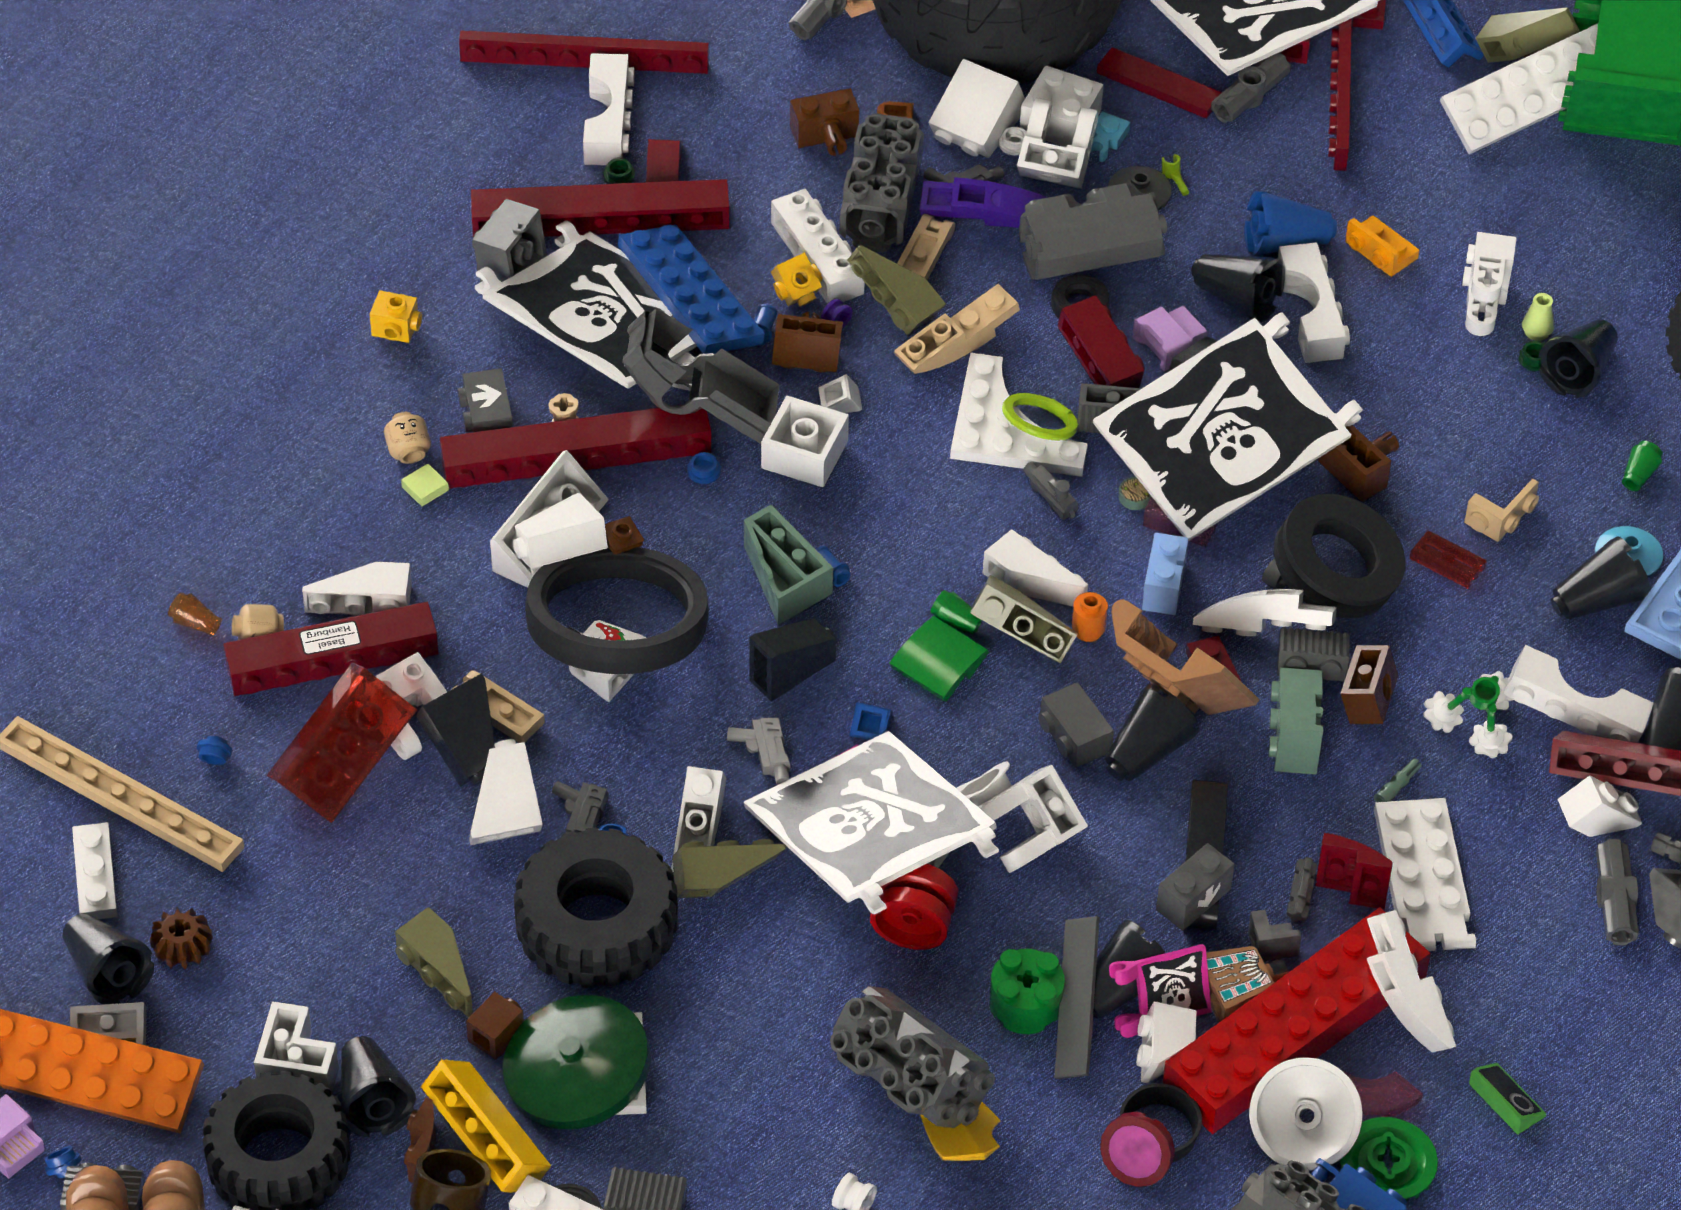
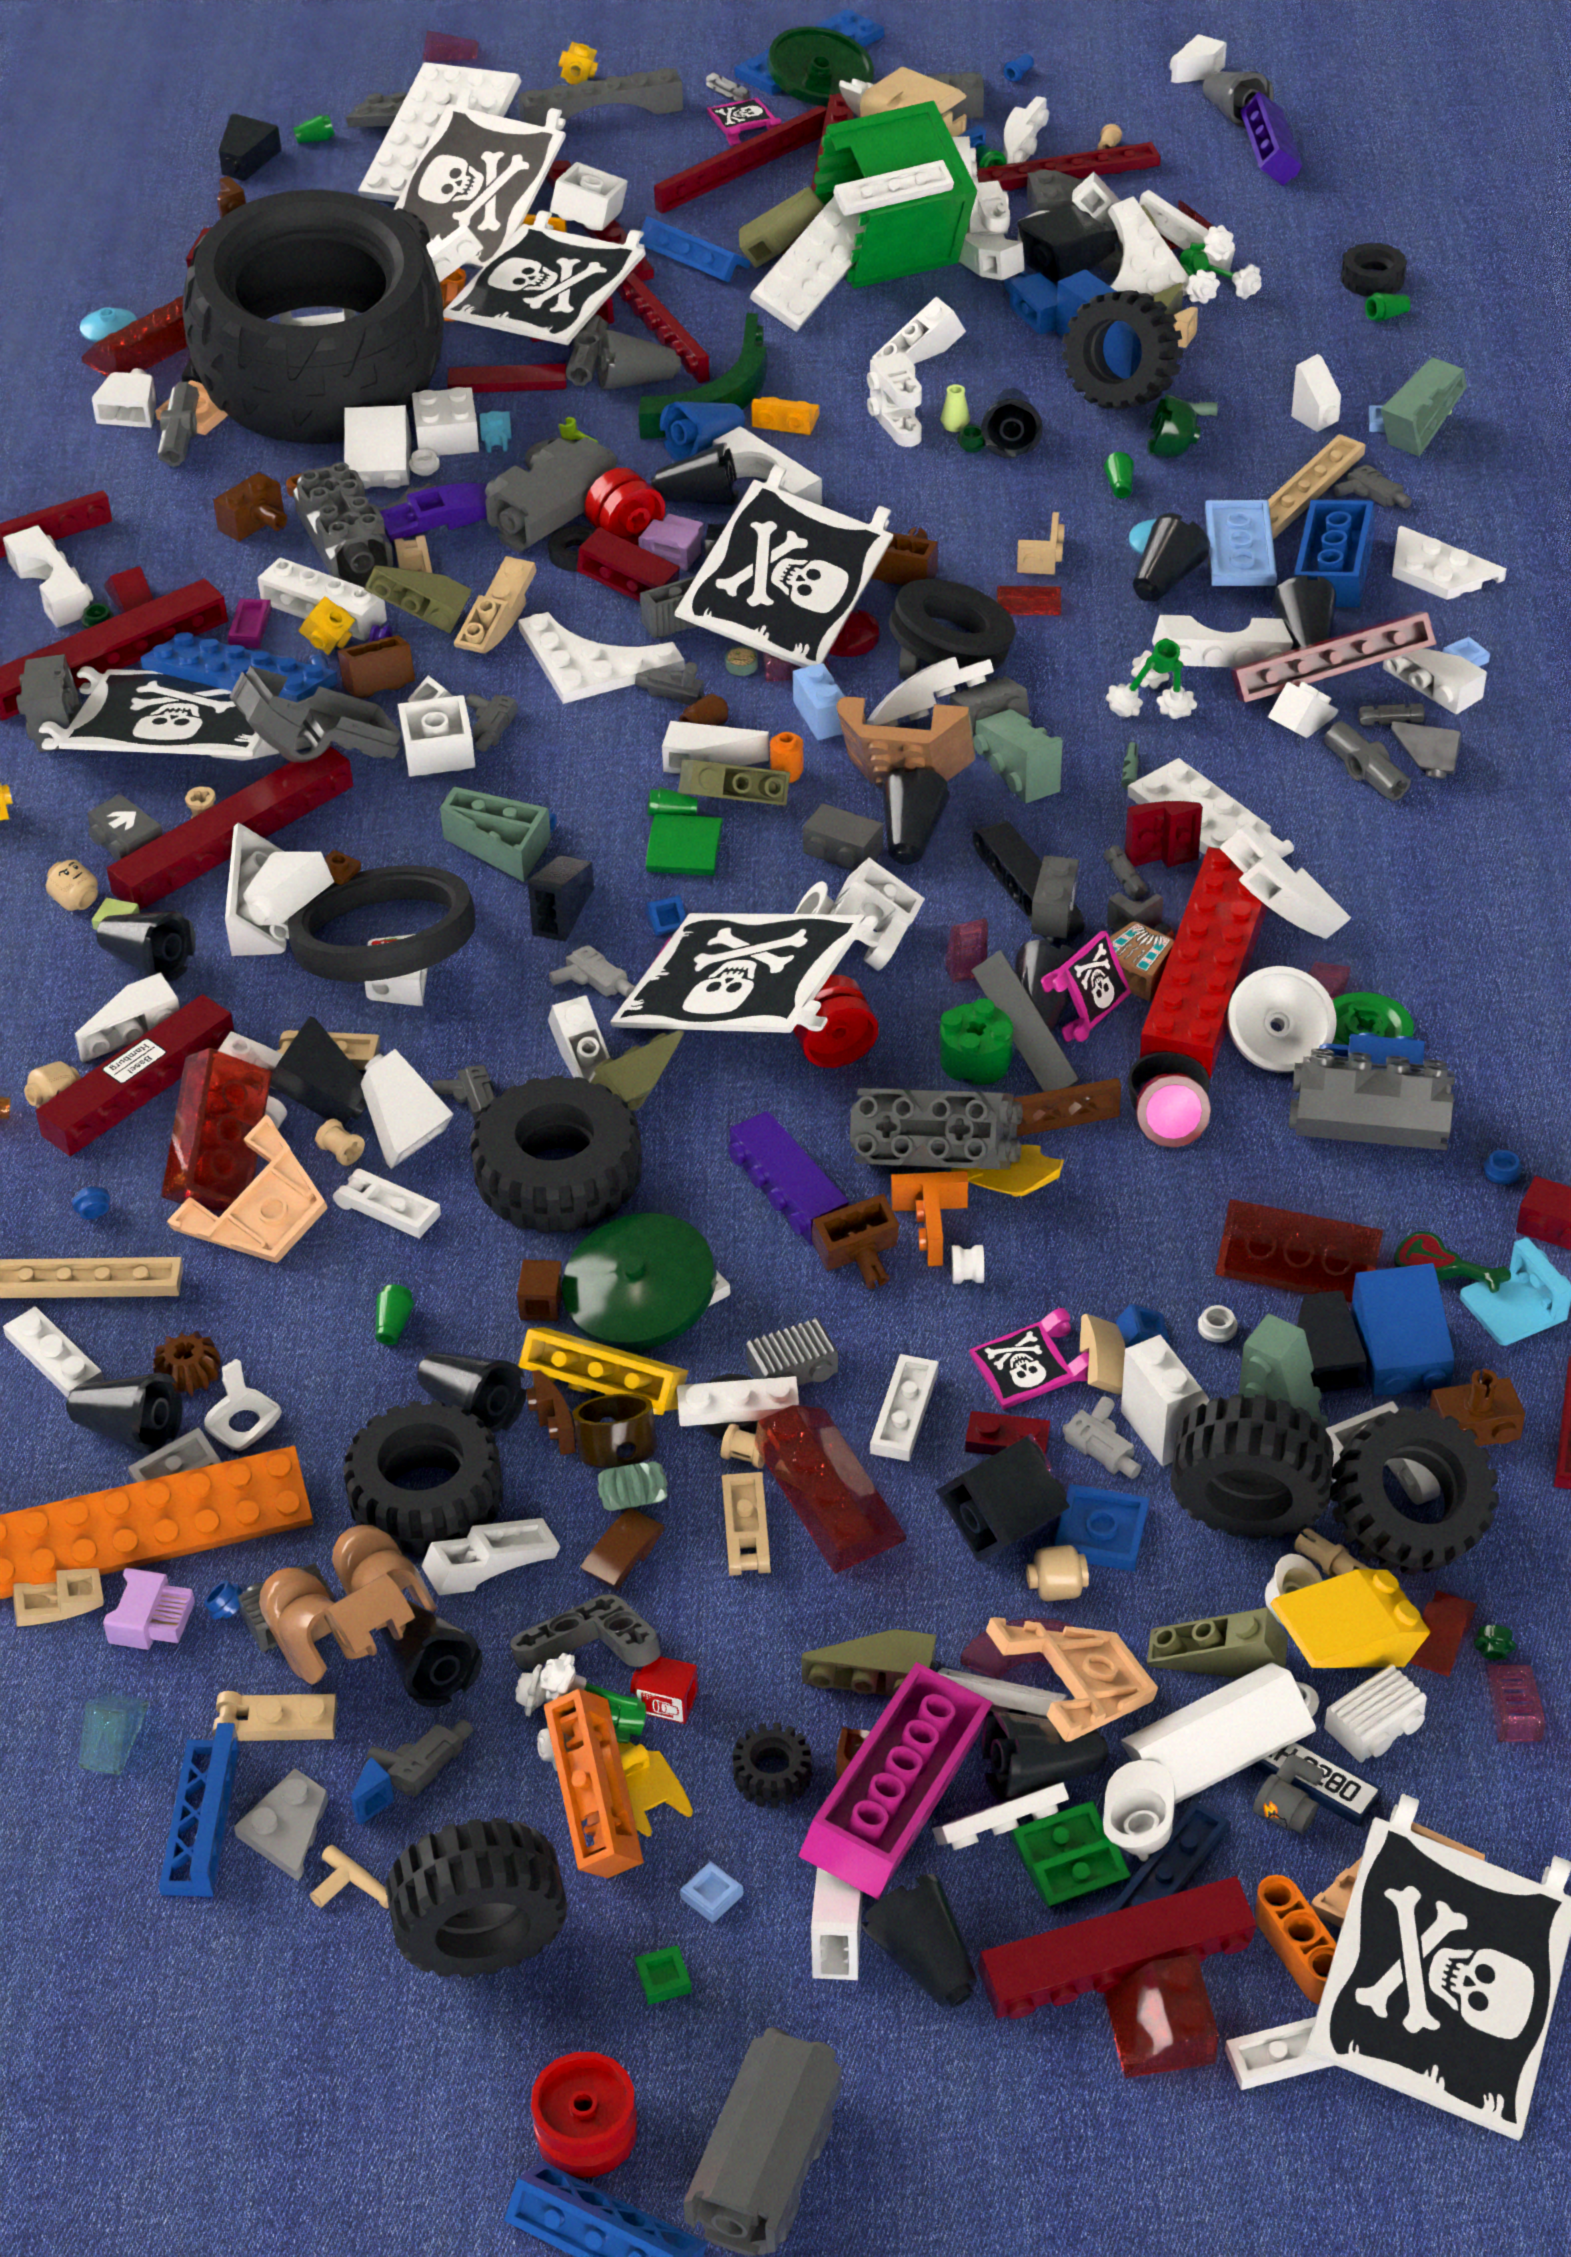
camera: 30 degrees left, 5 degrees down
(196, 991) = (240, 1399): none -> white piece
(288, 1046) = (365, 1394): white brick -> none
(342, 833) = (269, 1212): none -> light nougat wing
(367, 981) = (392, 1312): none -> green cone
(426, 529) = (149, 941): none -> black cone
(433, 951) = (440, 1262): olive slope -> none
(439, 877) = (387, 1203): none -> white plate
(442, 800) = (340, 1142): none -> tan bush
(704, 468) = (360, 796): blue plate -> none
(743, 240) = (250, 623): none -> magenta tile
(771, 1033) = (784, 1172): none -> dark purple brick
(778, 1119) = (857, 1236): none -> reddish brown brick
(869, 1114) = (927, 1195): none -> orange bracket
(876, 443) = (492, 718): none -> dark grey piece
(1046, 403) = (648, 636): lime piece -> none
(1049, 1090) = (1069, 1106): none -> reddish brown fence
(1054, 535) = (707, 711): none -> reddish brown brick
(1055, 162) = (472, 458): white brick -> none
(1086, 896) = (966, 949): none -> clear pink slope
(1141, 280) = (623, 504): none -> red wheel
(1163, 1034) = (1119, 1021): white slope -> none
(1260, 517) = (857, 636): none -> dark red tile
(1280, 122) = (633, 361): none -> dark grey cone
(1345, 196) = (736, 386): none -> dark green arch
(1369, 684) = (1054, 703): reddish brown brick -> none
(1506, 1097) = (1412, 941): slope -> none
(1575, 220) = (926, 334): none -> white slope
(1614, 59) = (893, 187): none -> white plate

